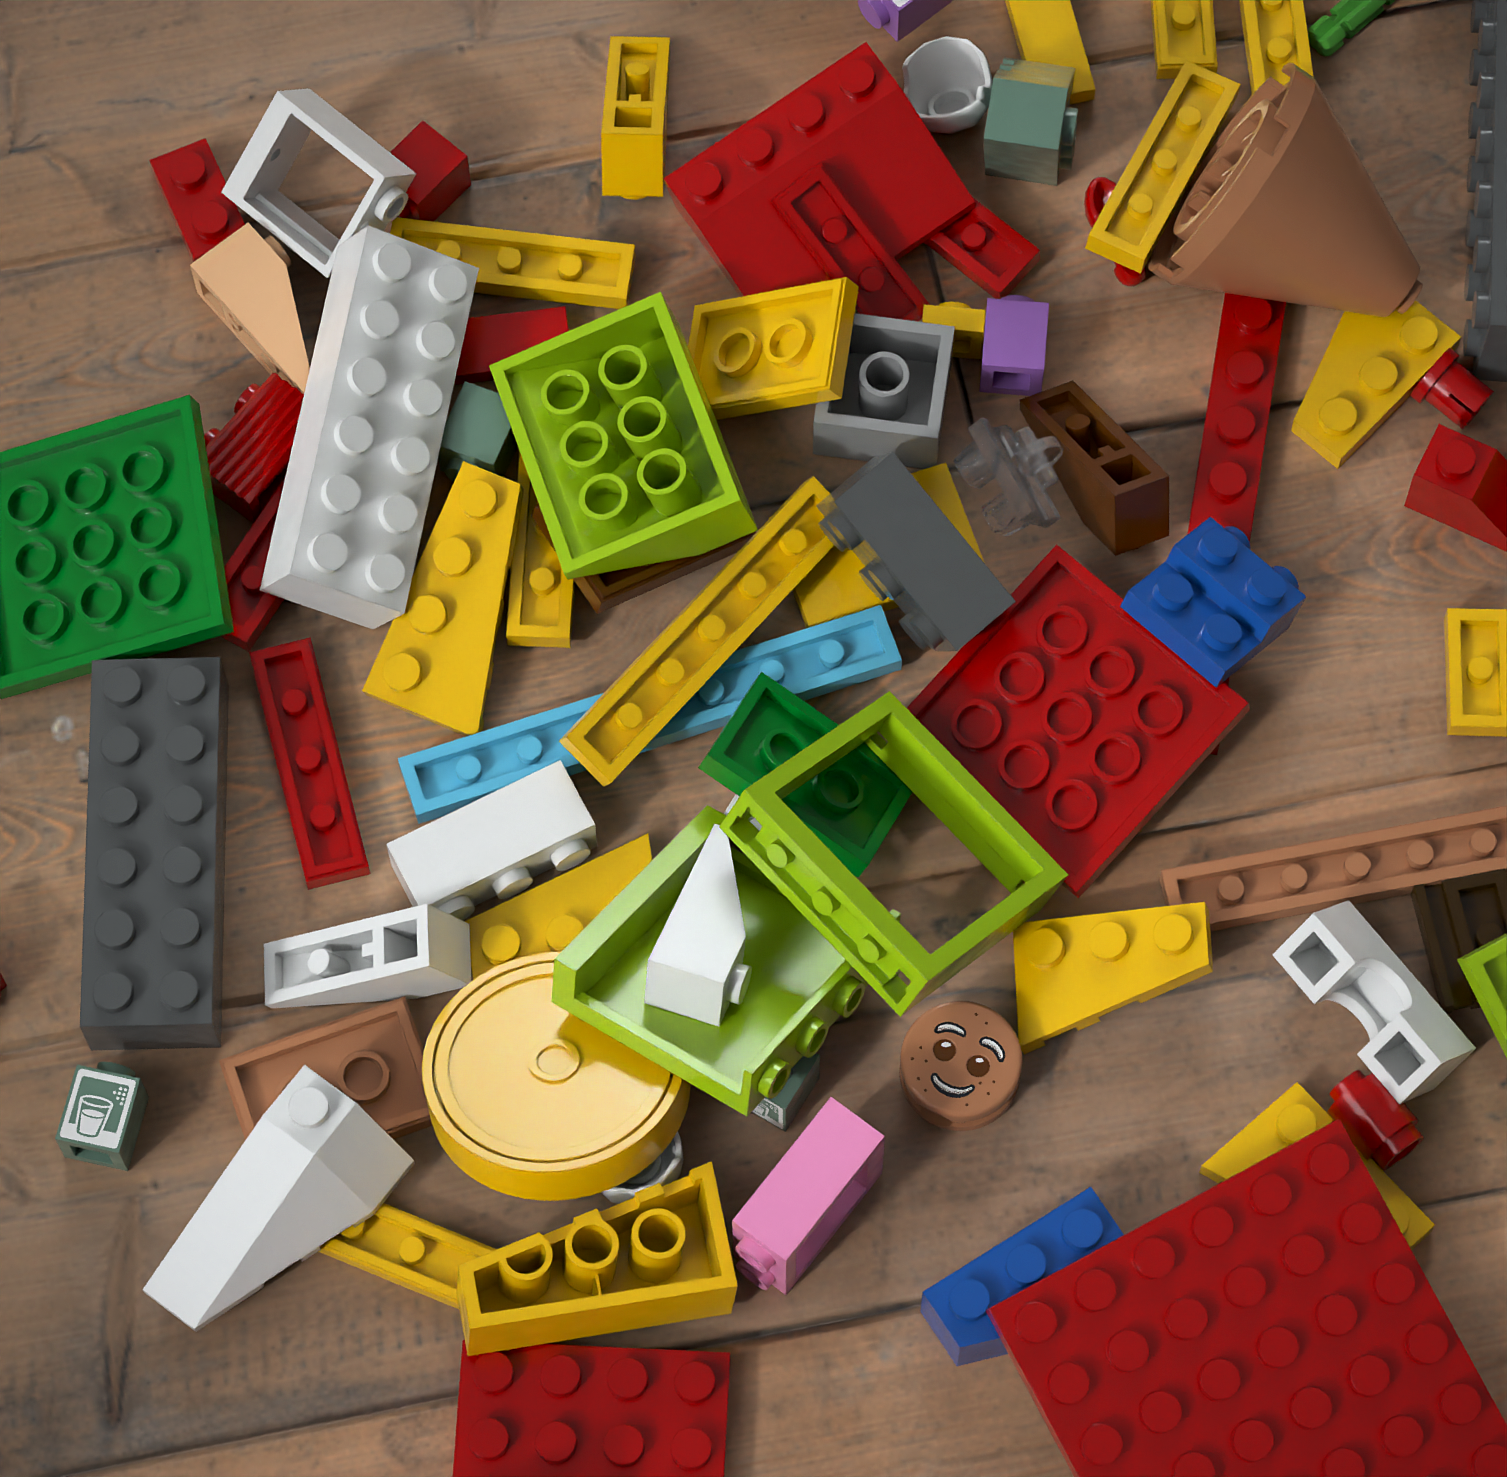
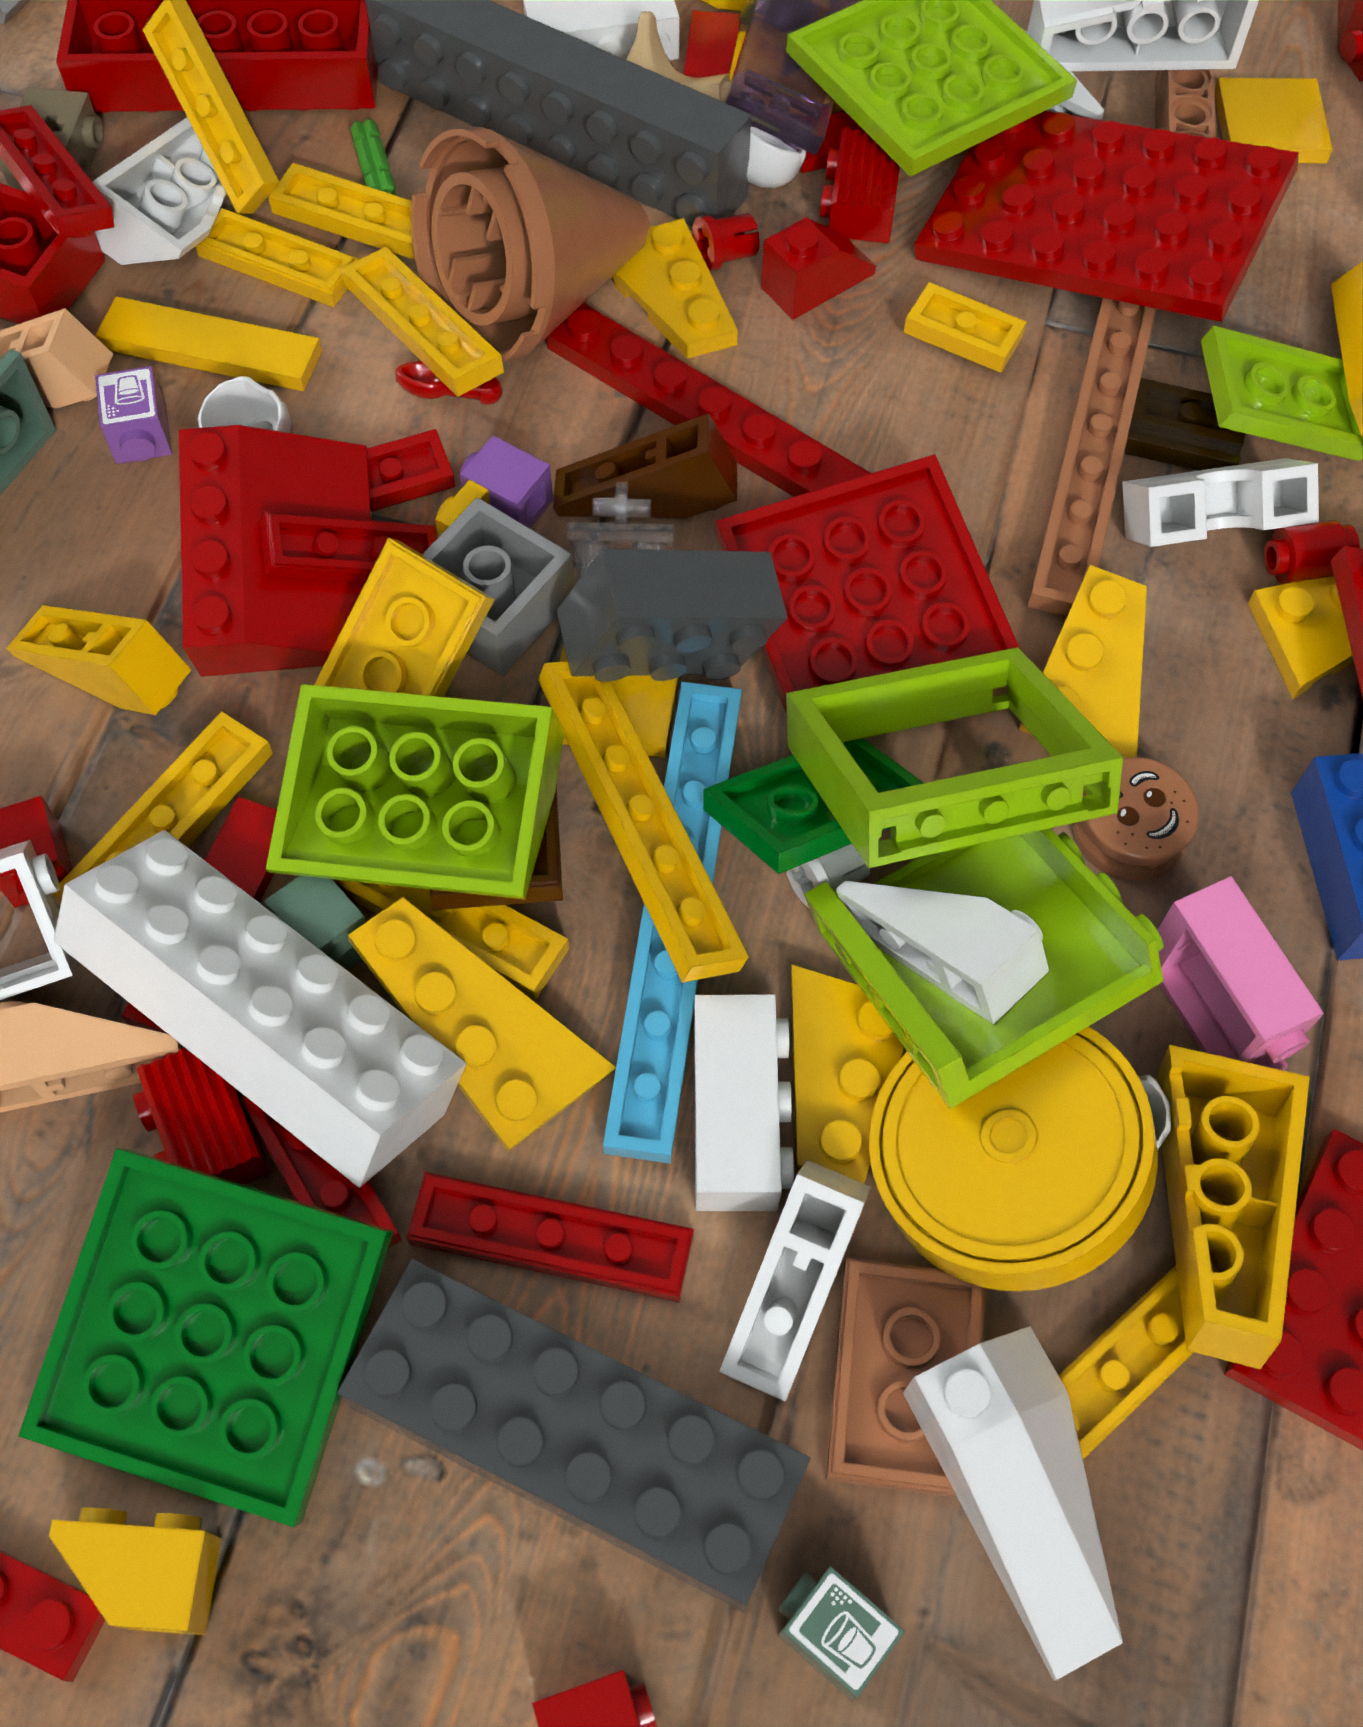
camera: 65 degrees left, 5 degrees down
(1030, 122) = (332, 364): sand green wedge -> none
(1215, 601) = (832, 436): blue plate -> none

